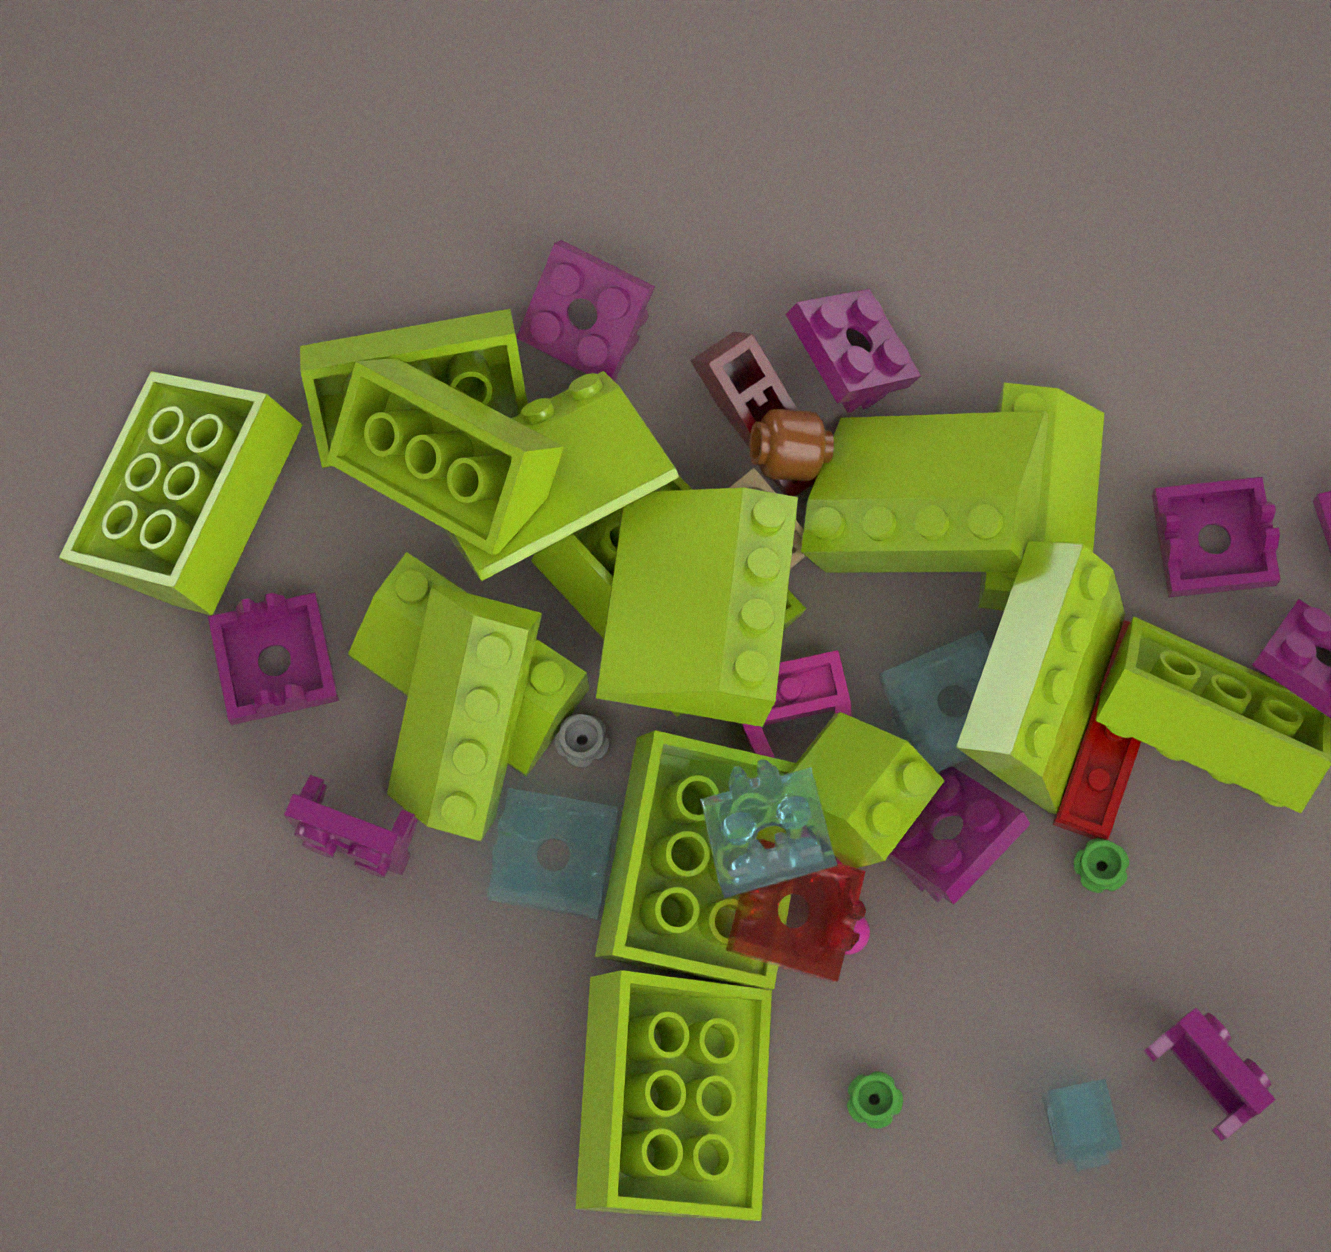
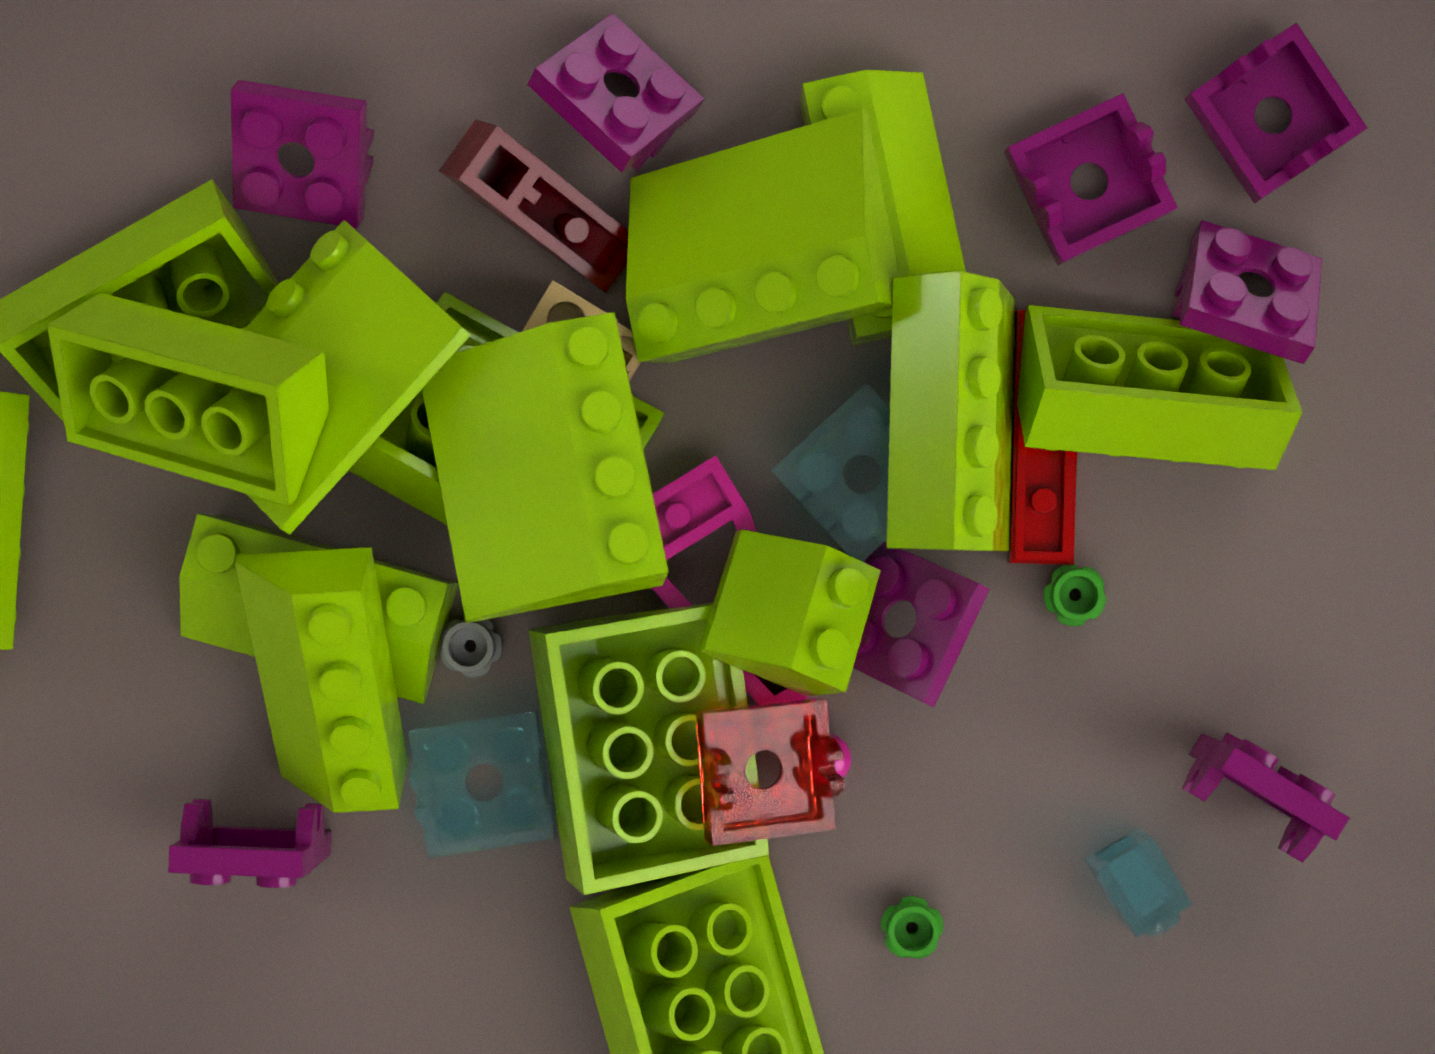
camera: 25 degrees left, 15 degrees up
(247, 632) = (57, 663): magenta piece -> none
(763, 802) = (680, 685): clear light blue piece -> none
(790, 445) = (585, 239): dark orange head -> none

